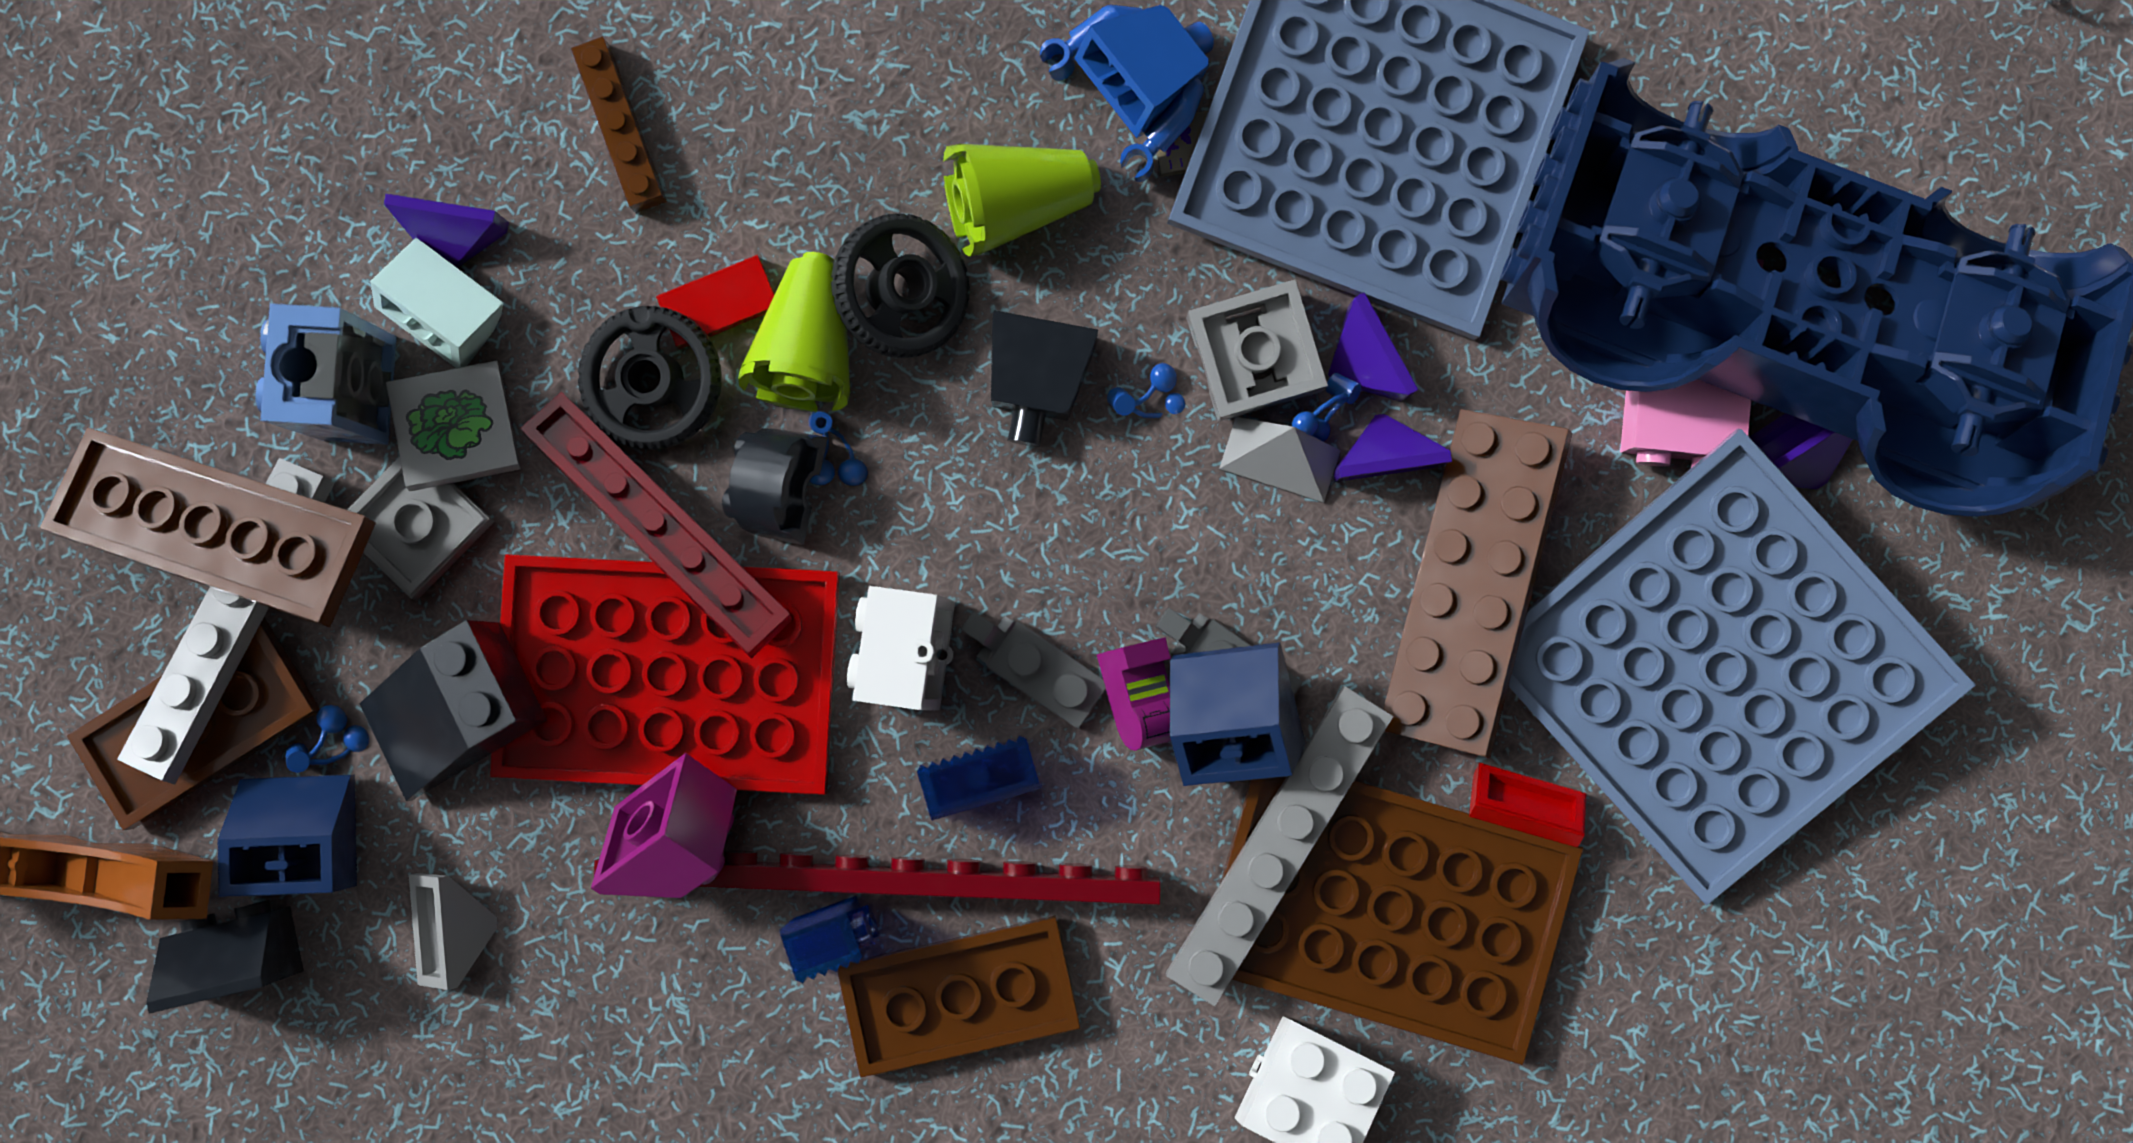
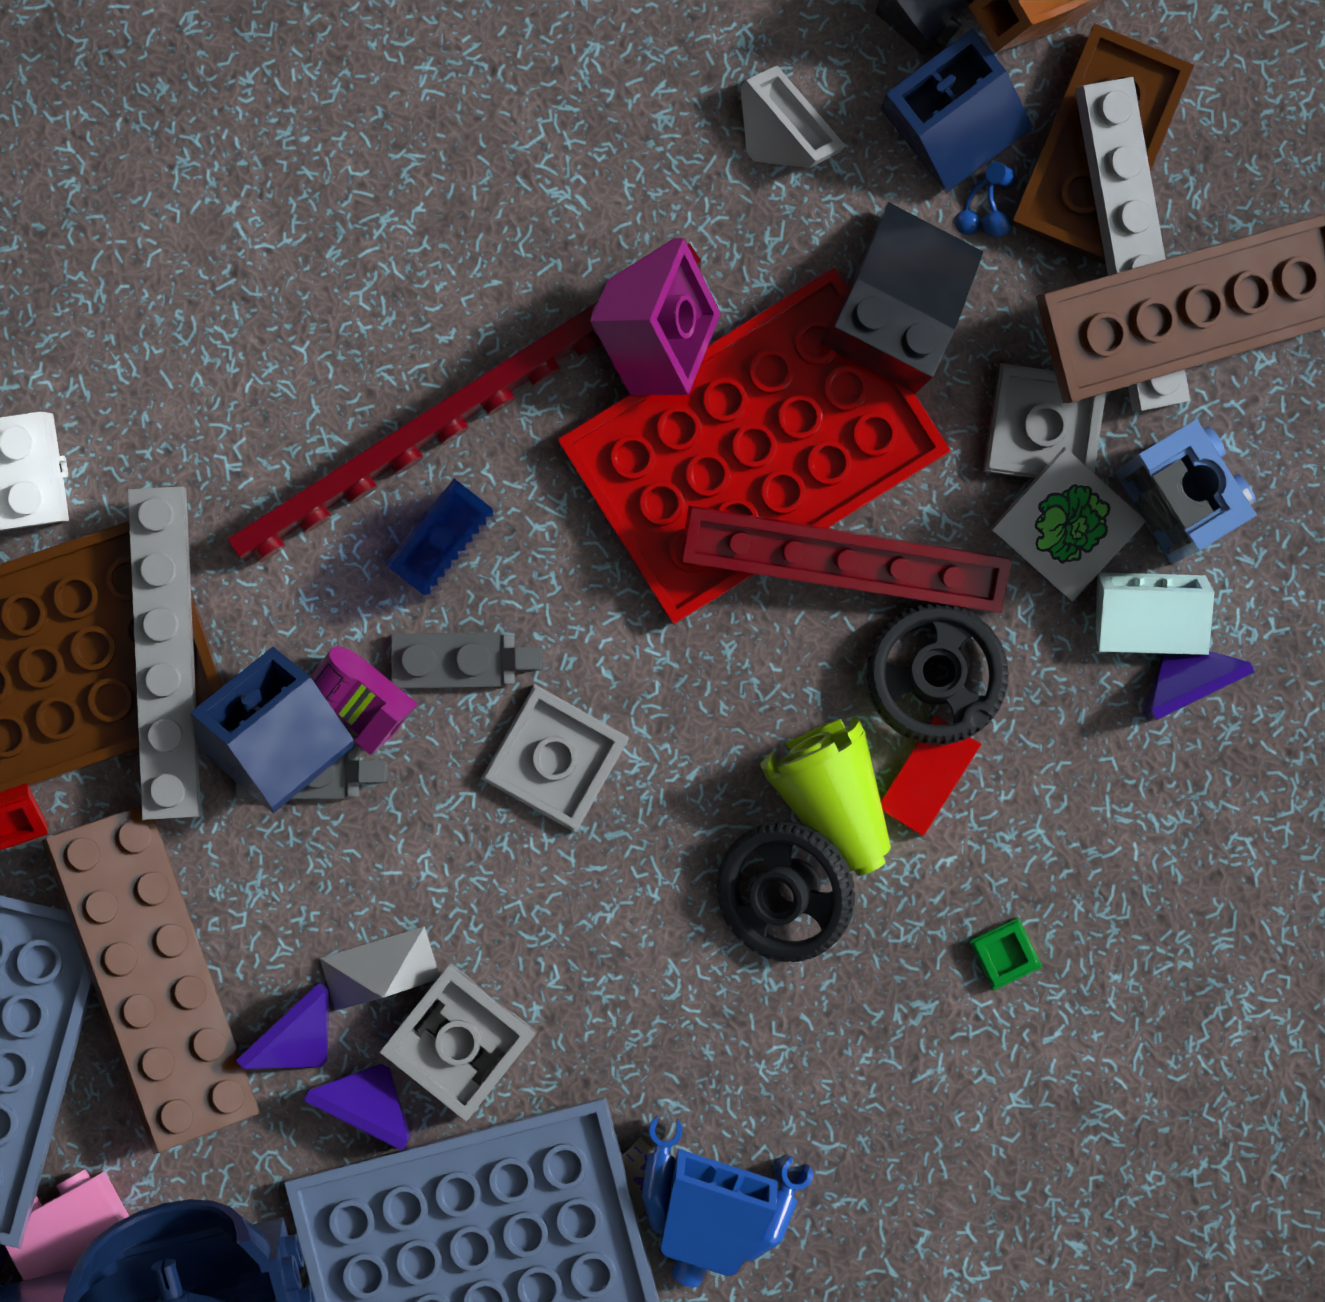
camera: 135 degrees right, 0 degrees up
(619, 124) = (1113, 864): reddish brown piece -> none
(760, 115) = (1005, 953): none -> green tile
(771, 482) = (777, 660): black cylinder -> none
(829, 938) = (471, 330): clear blue brick -> none
(851, 471) = (746, 696): blue piece -> none
(901, 648) = (571, 589): white brick -> none
(958, 996) = (339, 356): reddish brown plate -> none
(1014, 190) = (748, 1034): lime cone -> none
(1014, 530) = (555, 758): none -> light grey tile
(1037, 371) = (626, 900): black torso -> none
(1163, 380) = (522, 967): blue piece -> none
(1344, 391) = (366, 1015): blue piece -> none

